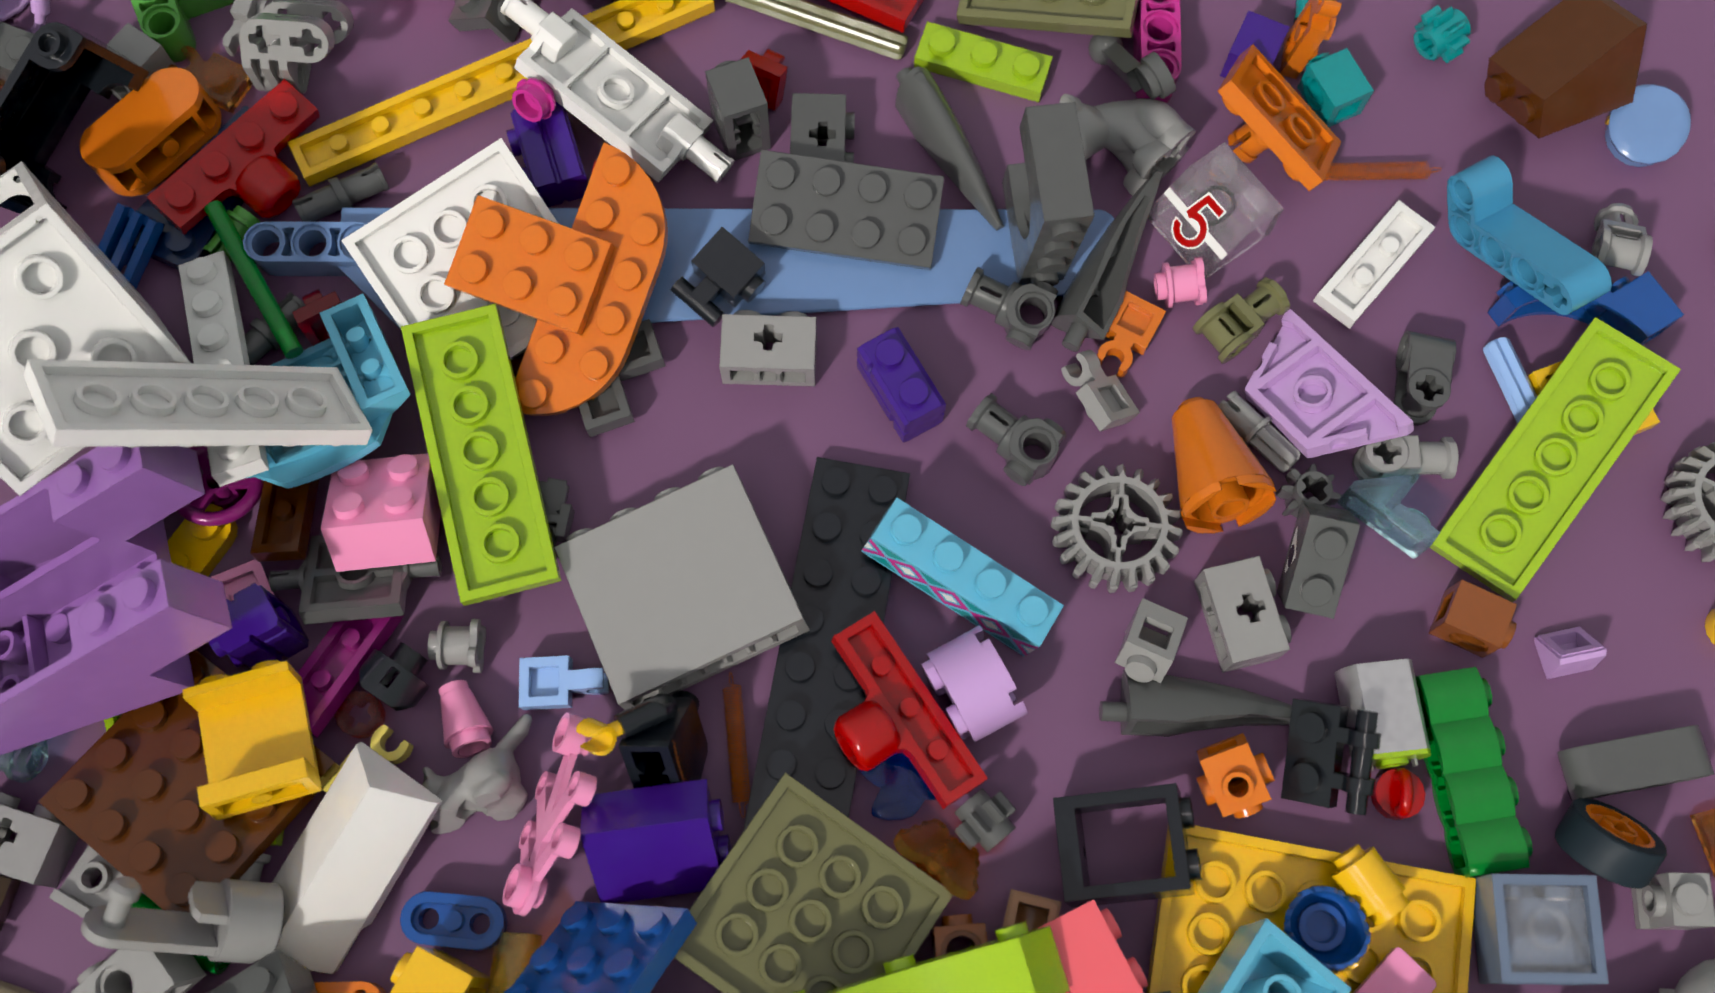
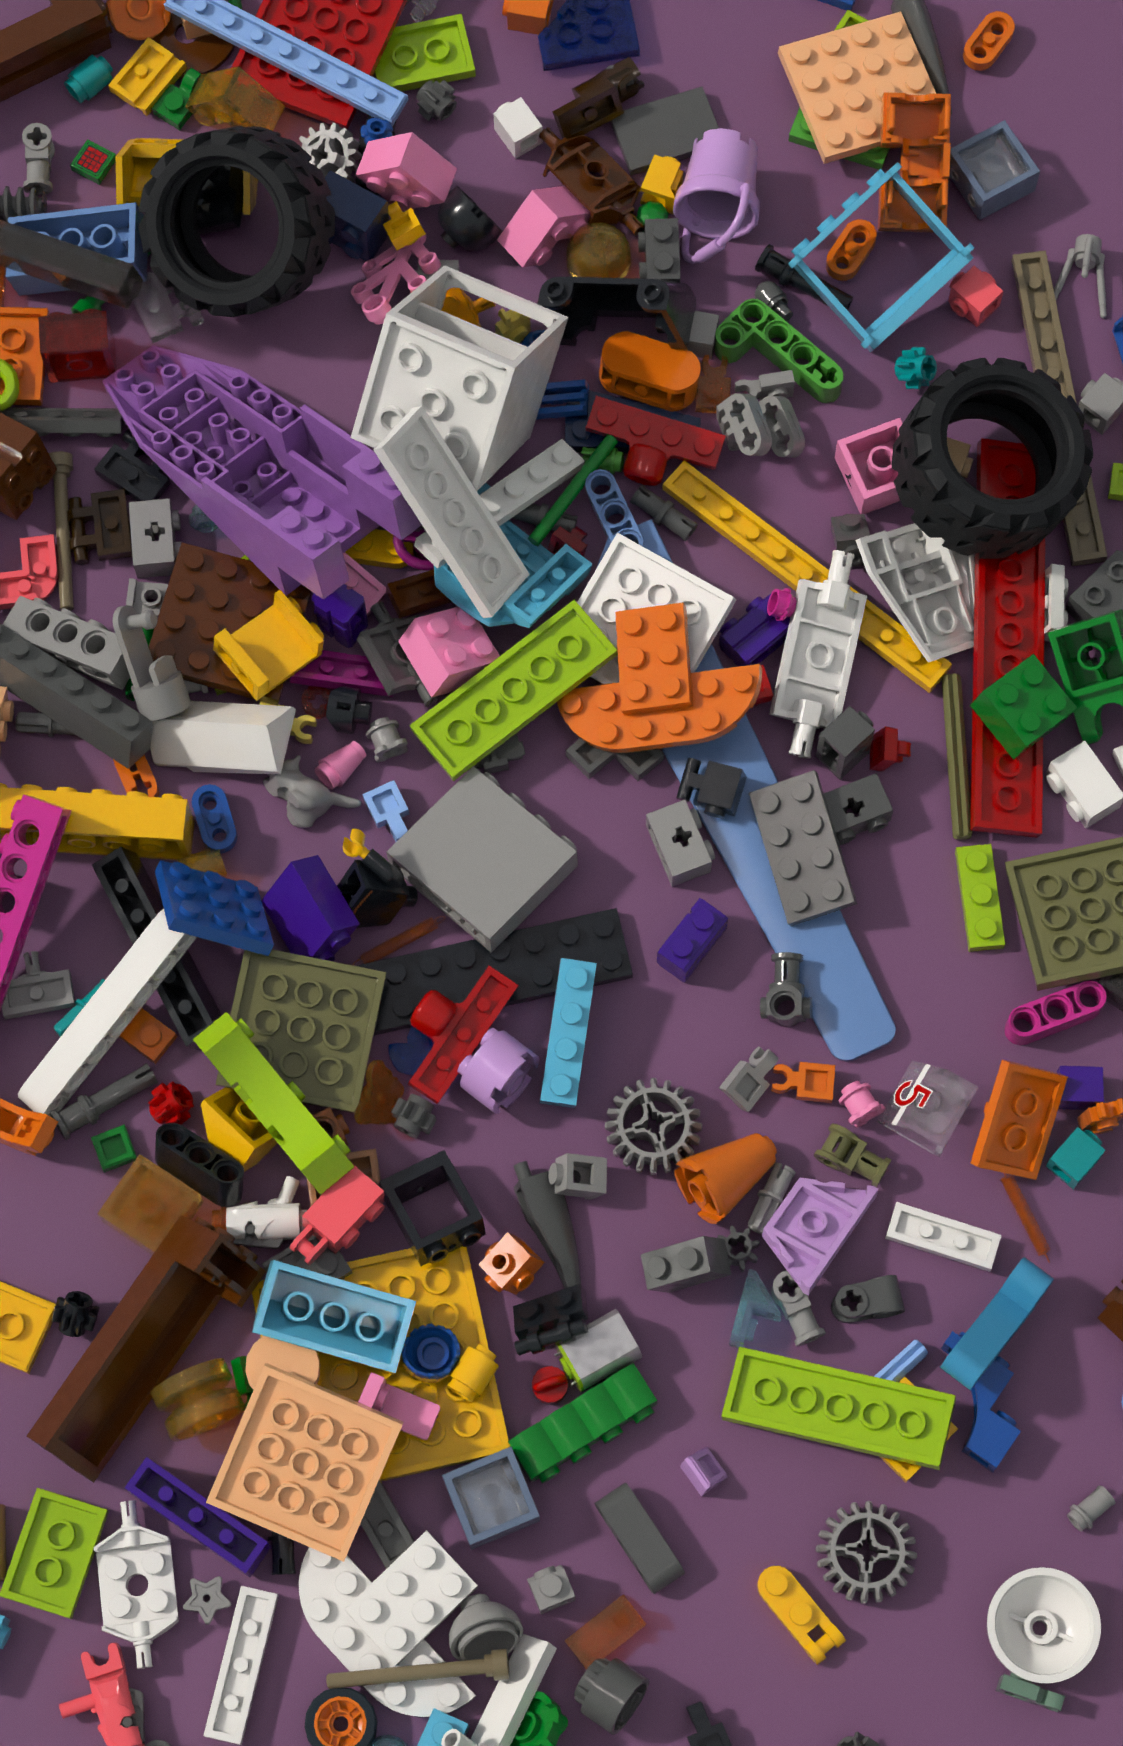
camera: 70 degrees right, 0 degrees up
(548, 836) = (283, 846): bright pink plant -> none
(943, 138) = (900, 895): dark grey piece -> none
(1014, 435) = (689, 1033): dark grey connector -> none
(1048, 194) = (852, 969): dark grey arch -> none
(1103, 278) = (842, 1045): dark grey piece -> none
(1138, 132) = (967, 1026): light grey animal -> none
(1148, 74) = (1006, 1006): dark grey piece -> none
(1235, 637) = (638, 1215): light grey brick -> none
(1474, 619) = (695, 1394): dark orange brick -> none
(1610, 843) = (570, 1528): black wheel -> none
(1619, 242) = (1035, 1403): light grey connector -> none

